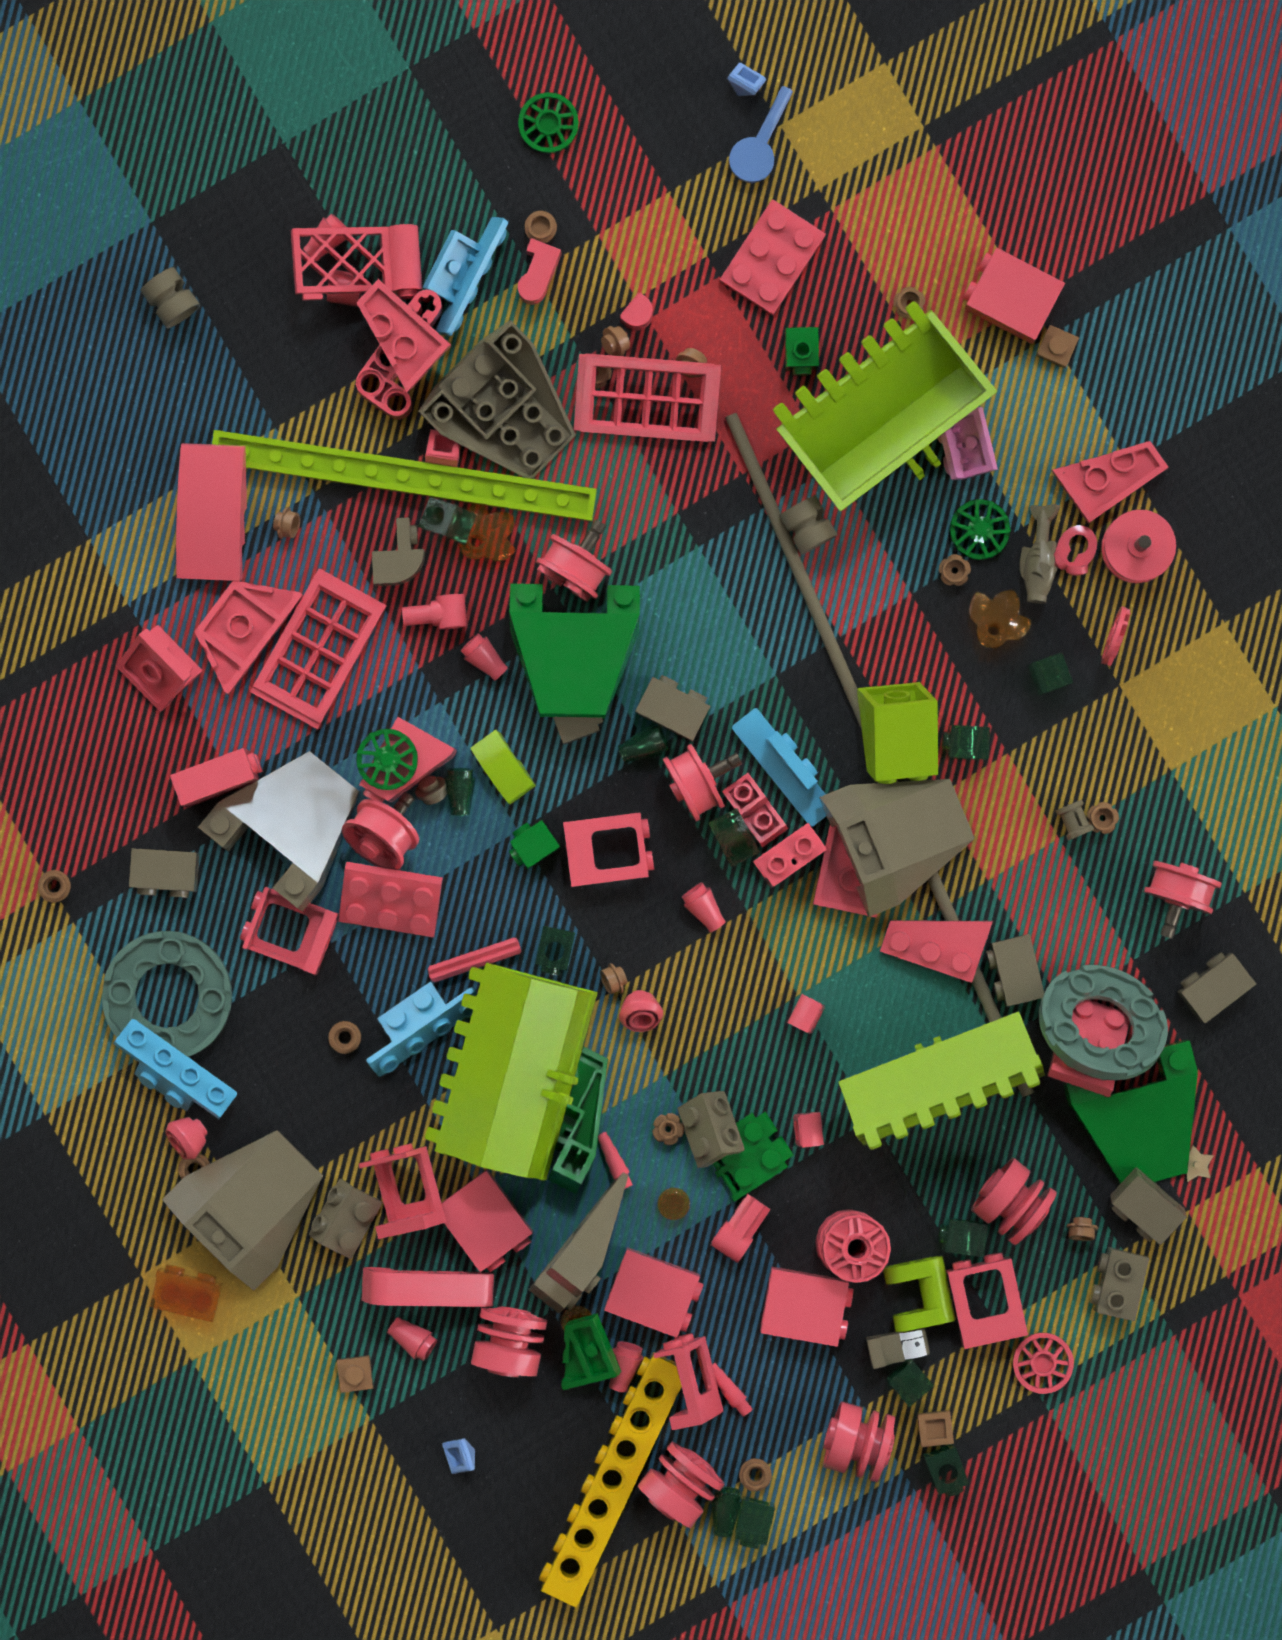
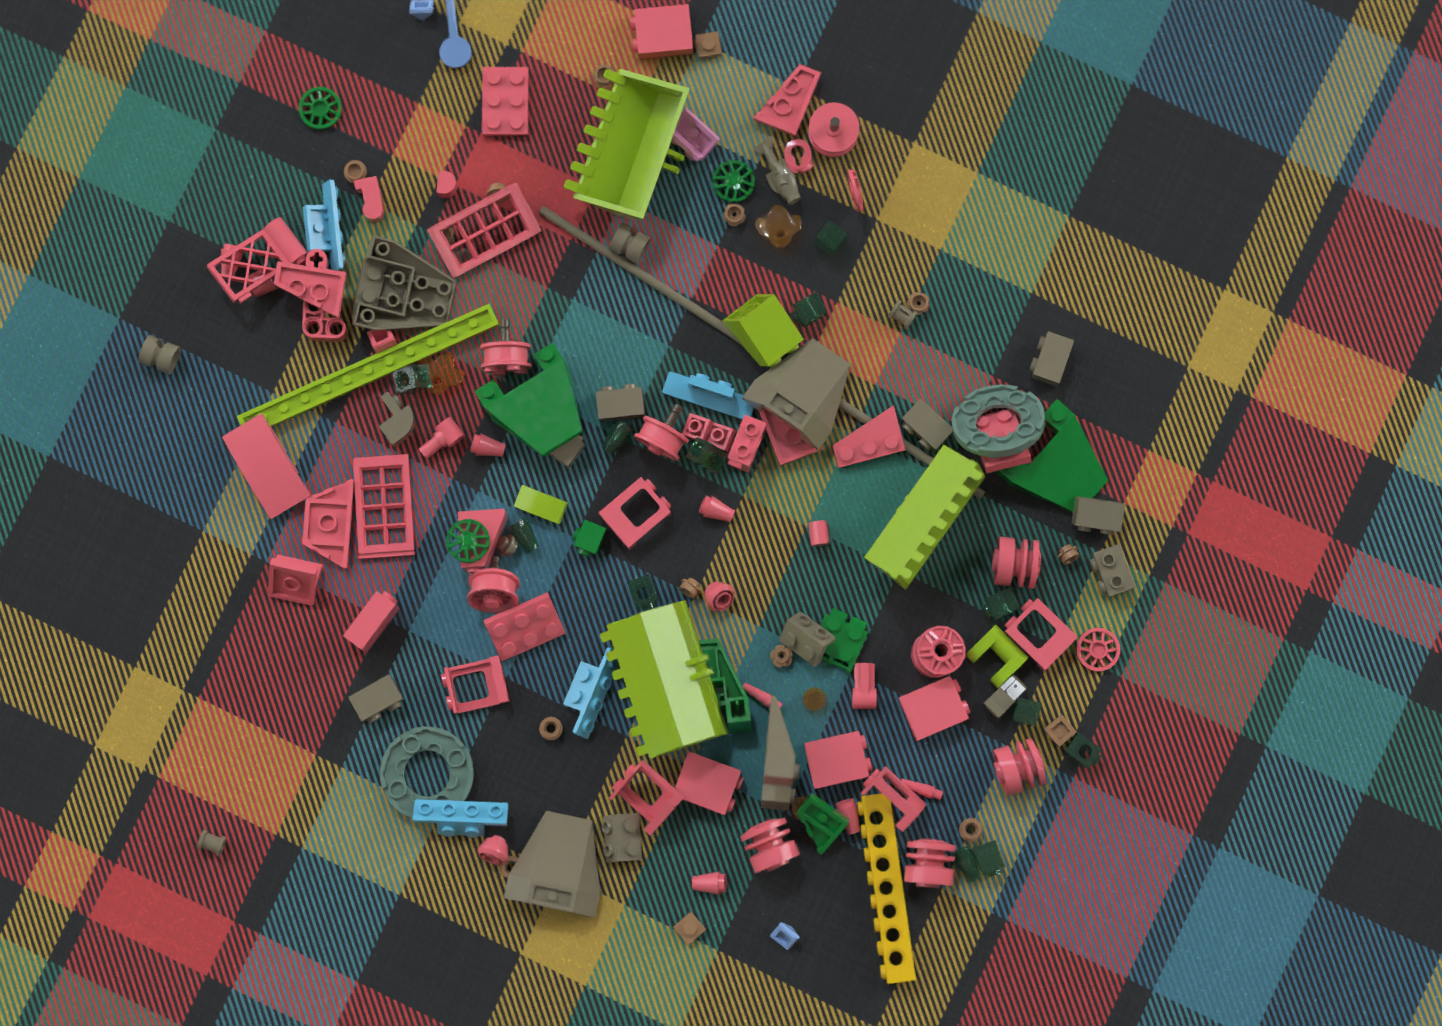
camera: 30 degrees left, 5 degrees down
(46, 893) = (308, 752): medium nougat plate -> none
(185, 1293) = (555, 946): clear orange bracket -> none
(286, 523) = (316, 443): medium nougat plate -> none
(297, 813) = (433, 611): wedge -> none
(427, 1288) = (698, 845): coral beam -> none
(474, 959) = (601, 627): coral axle -> none
(615, 341) = (443, 209): medium nougat plate -> none
(801, 350) = (558, 143): green brick -> none
(808, 1129) = (865, 601): coral brick -> none
(1181, 889) = (993, 312): coral wheel -> none
(1198, 1164) = (1111, 471): tan piece -> none

